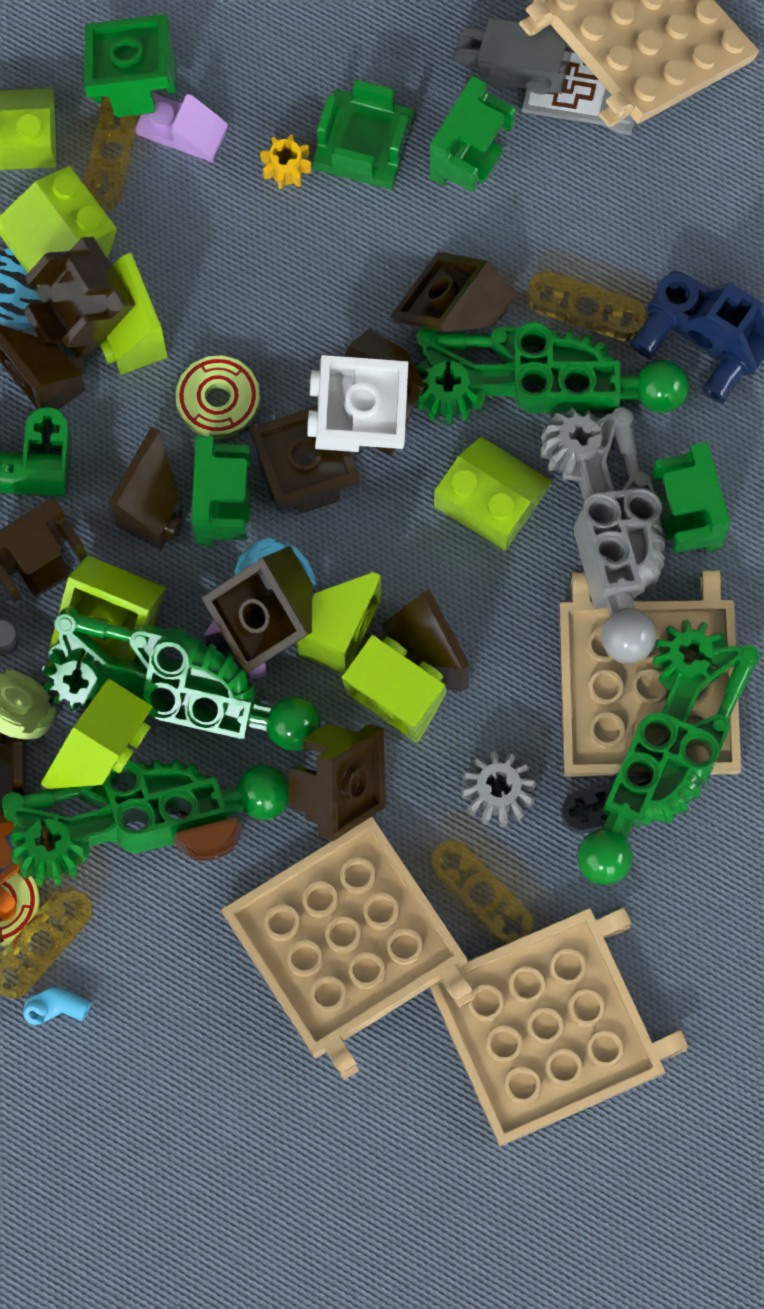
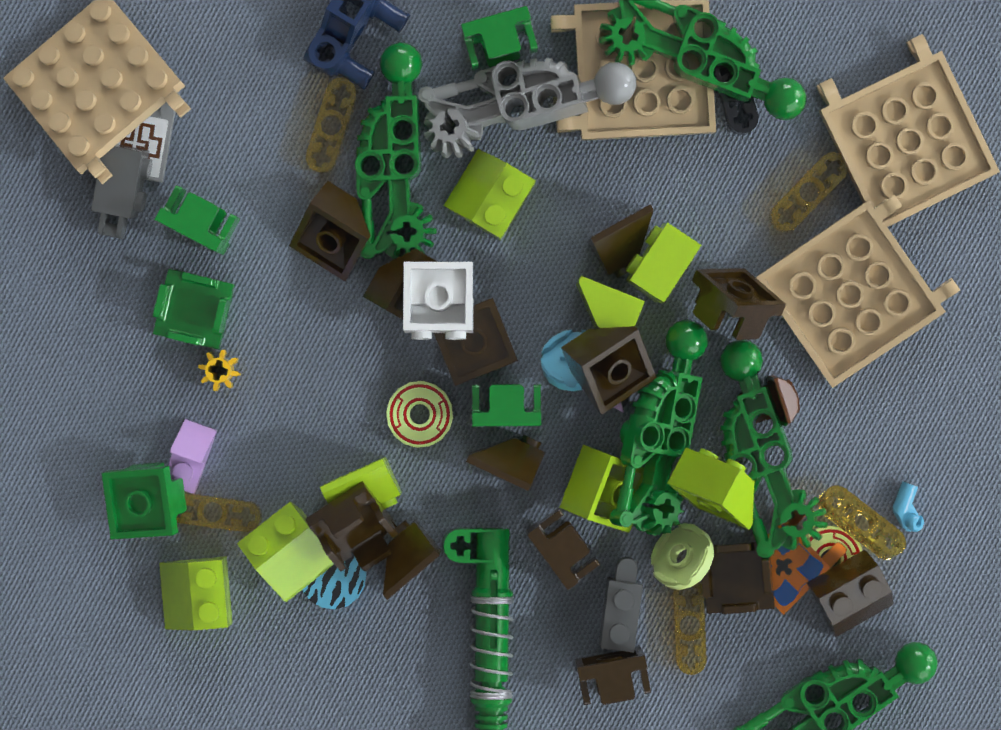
camera: 90 degrees left, 15 degrees up
(481, 791) = (723, 172): light grey gear -> none

